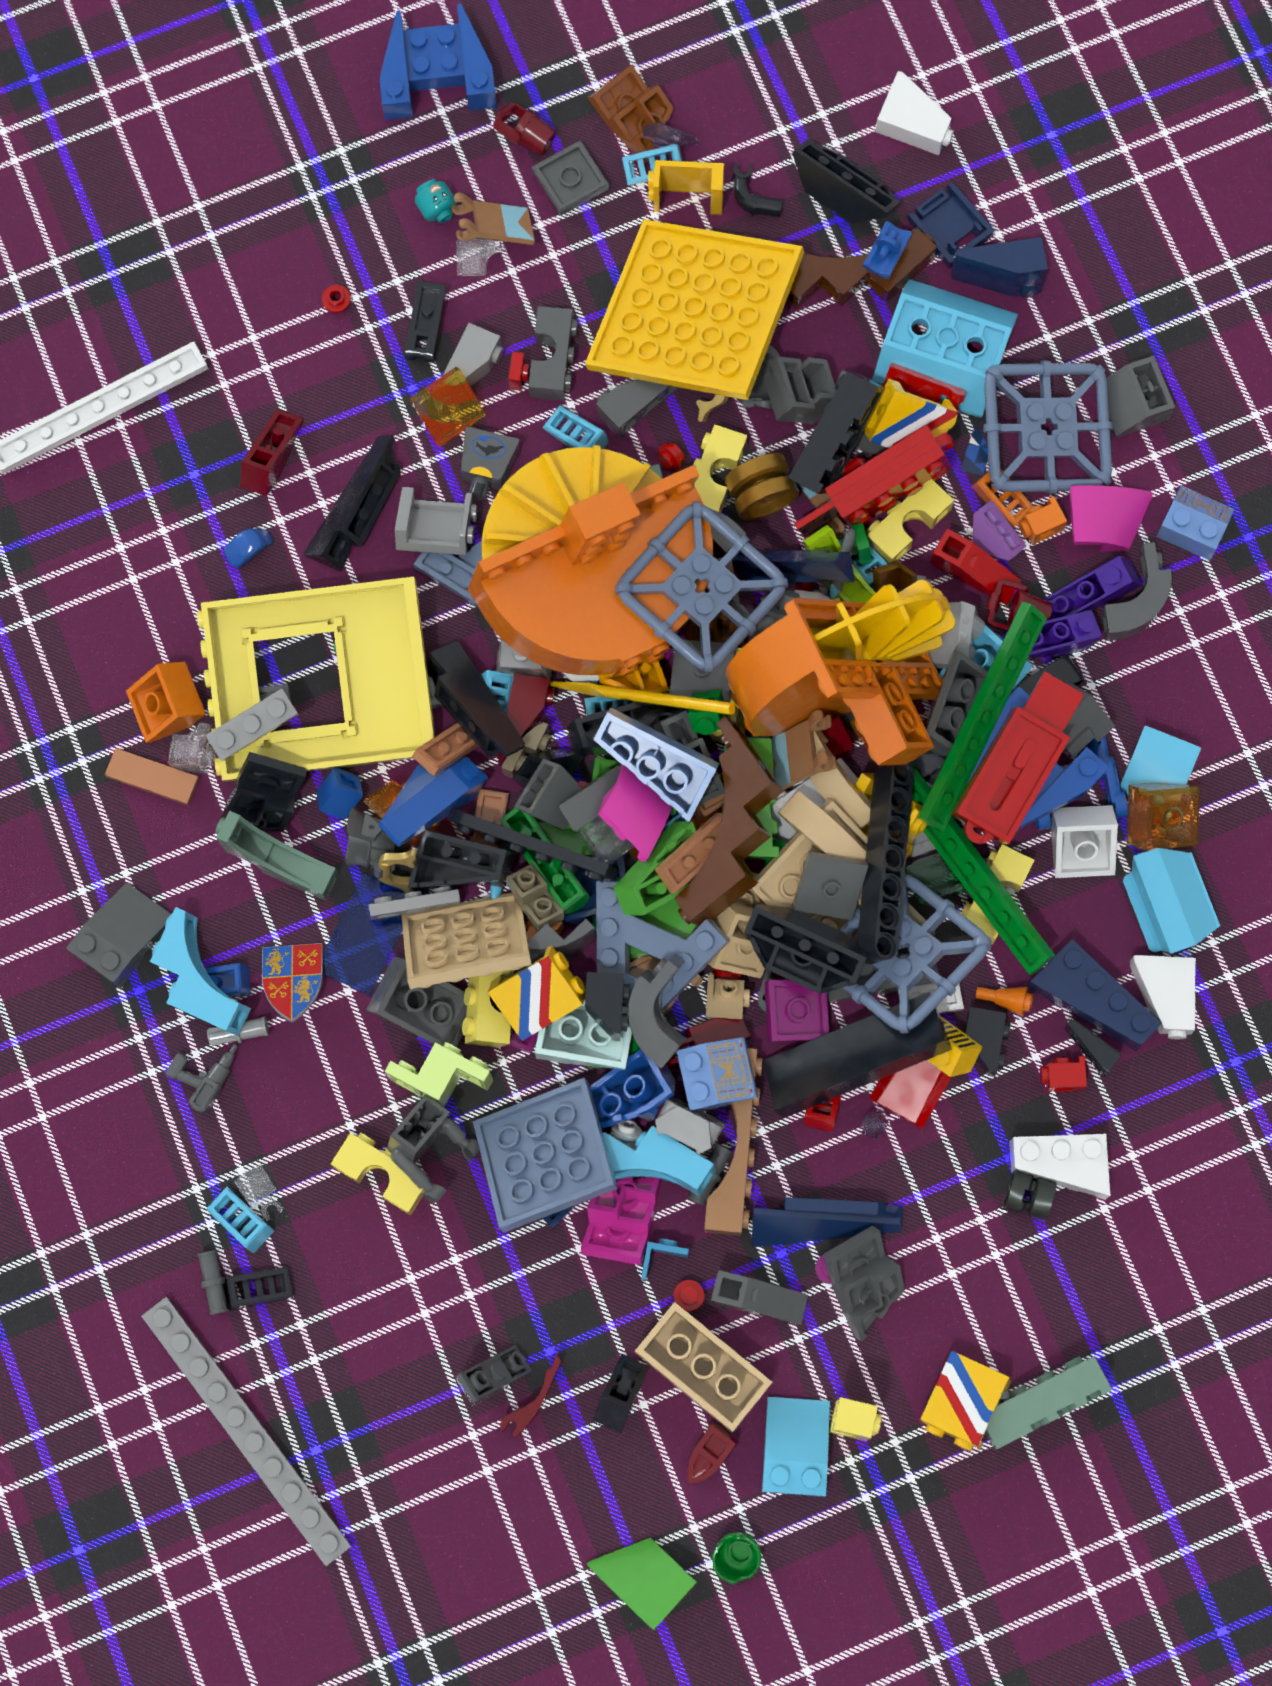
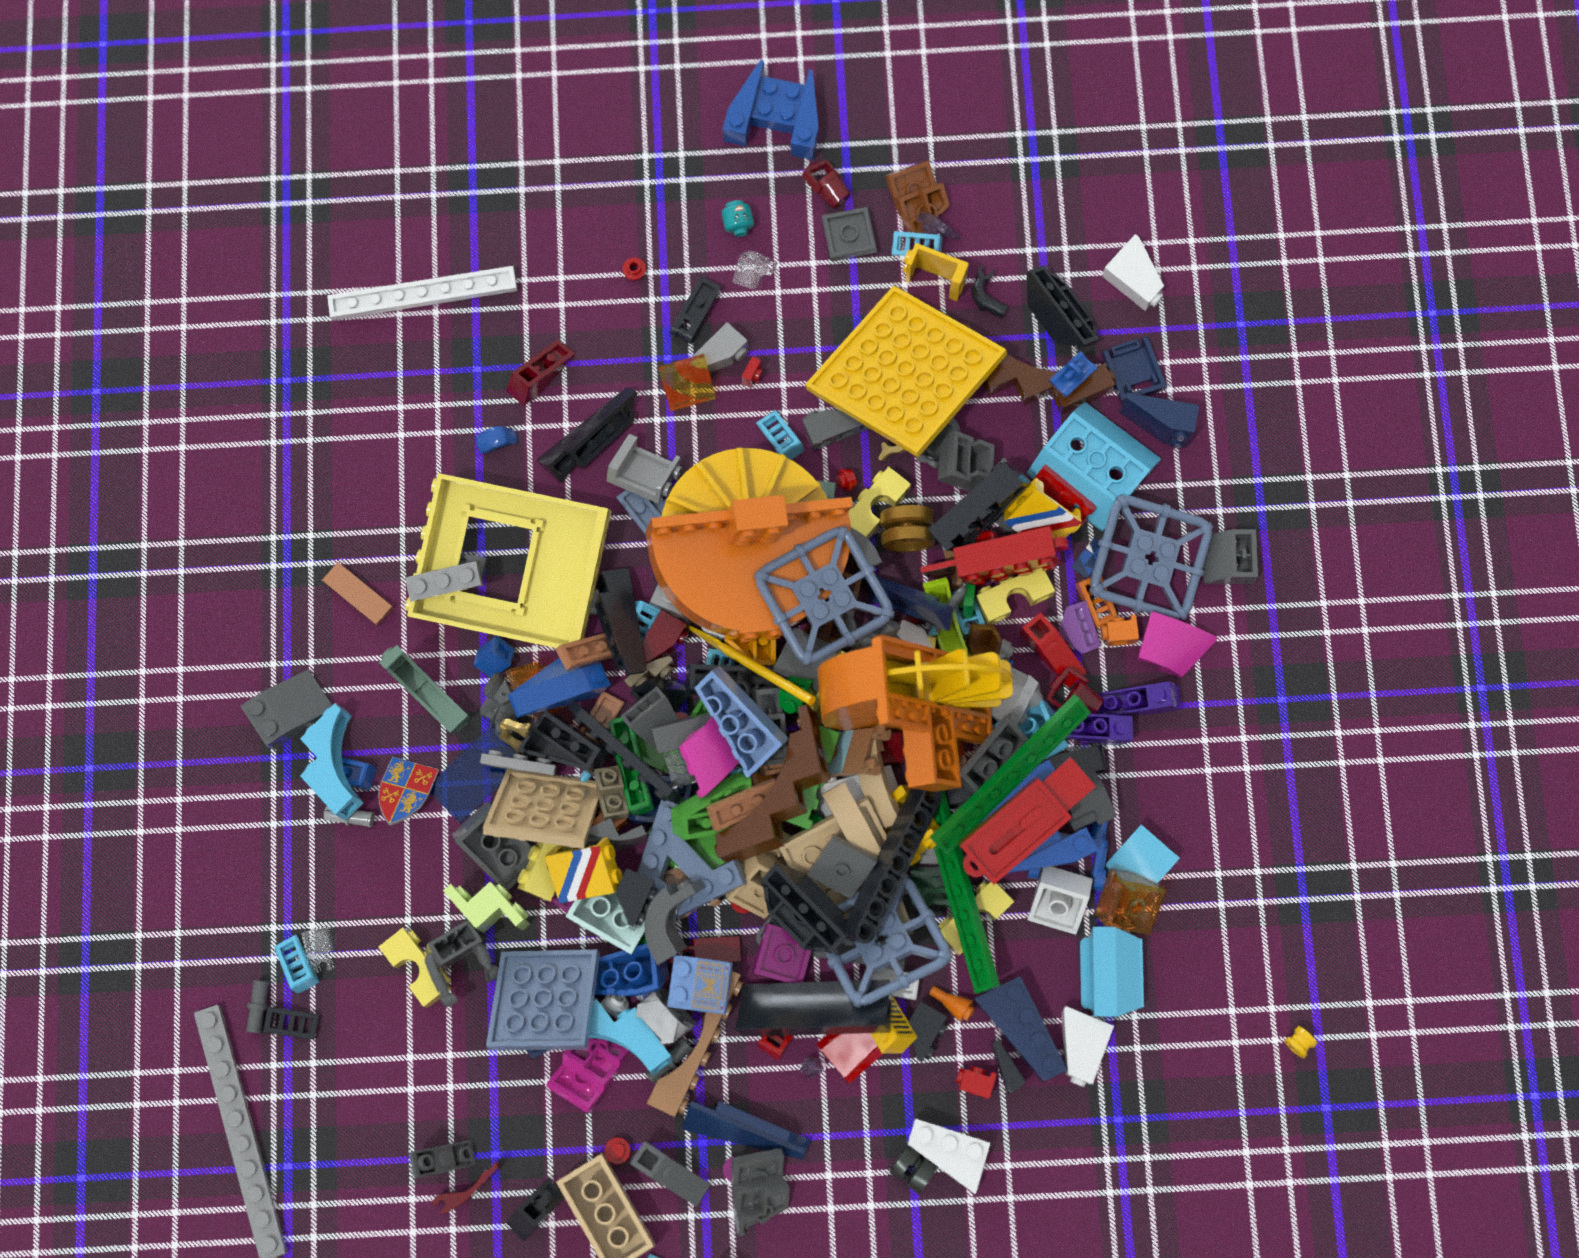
camera: 20 degrees right, 0 degrees up
(165, 701) = (389, 538): orange slope -> none
(192, 751) = (393, 584): clear brick -> none
(207, 1085) = (310, 849): dark grey piece -> none
(265, 792) = (435, 638): black slope -> none
(487, 460) = (703, 434): dark grey torso -> none
(493, 221) = (775, 249): medium nougat flag -> none
(550, 377) = (776, 386): dark grey arch -> none
(664, 1246) = (612, 1105): dark azure bracket -> none
(726, 998) = (732, 925): tan brick -> none
(1134, 616) = (1165, 733): dark grey arch -> none
(1195, 523) = (1242, 673): medium blue slope -> none

